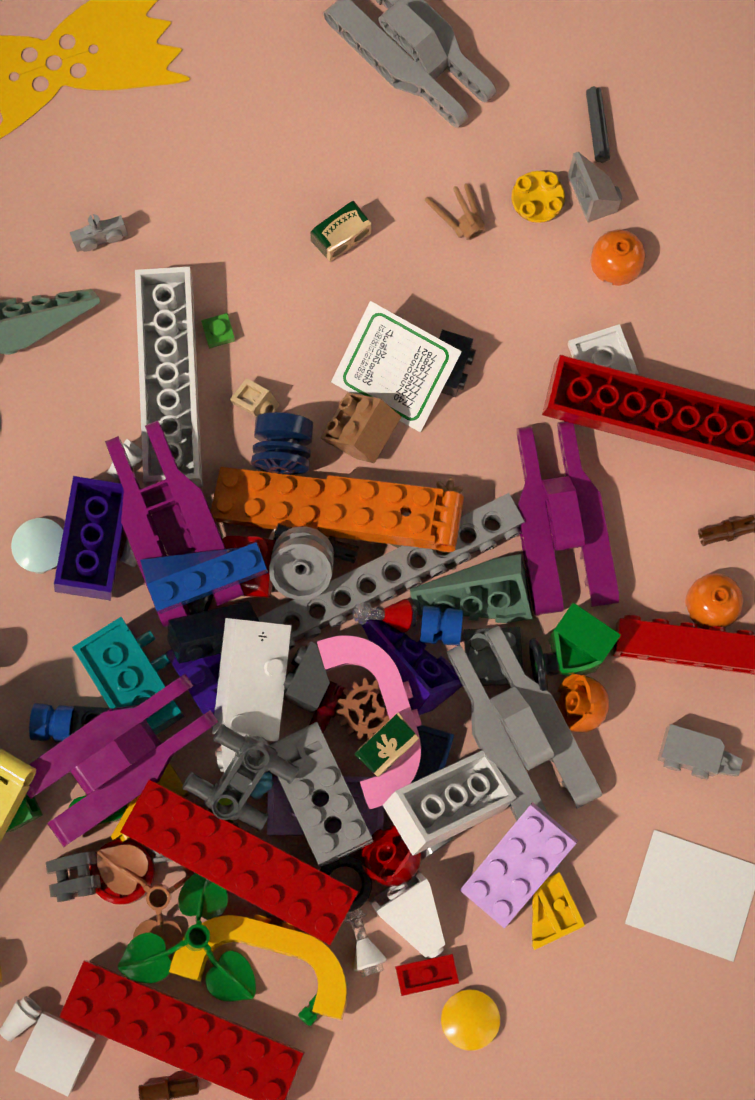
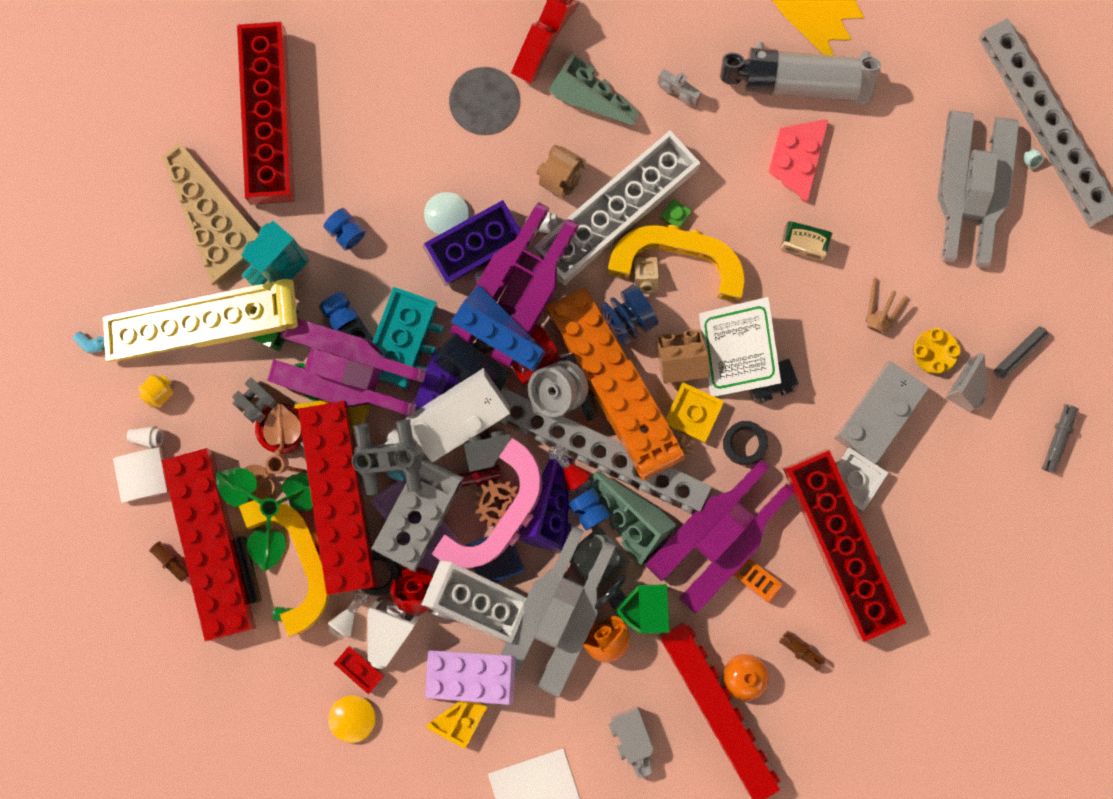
camera: 55 degrees right, 5 degrees up
(90, 402) = (561, 171): none -> medium nougat brick
(181, 112) = (803, 74): none -> light grey piece
(239, 1015) = (247, 570): none -> black axle
(253, 178) = (797, 156): none -> coral wing
(255, 340) = (681, 242): none -> yellow arch
(387, 745) = (478, 534): dark green piece -> none
(423, 456) = (693, 412): none -> yellow plate
(493, 412) = (757, 430): none -> black tyre
(558, 286) = (881, 412): none -> light grey brick
(618, 257) = (935, 436): orange cylinder -> none
(641, 527) = (761, 572): none -> orange slope
(698, 142) = (1060, 438): none -> dark grey pin

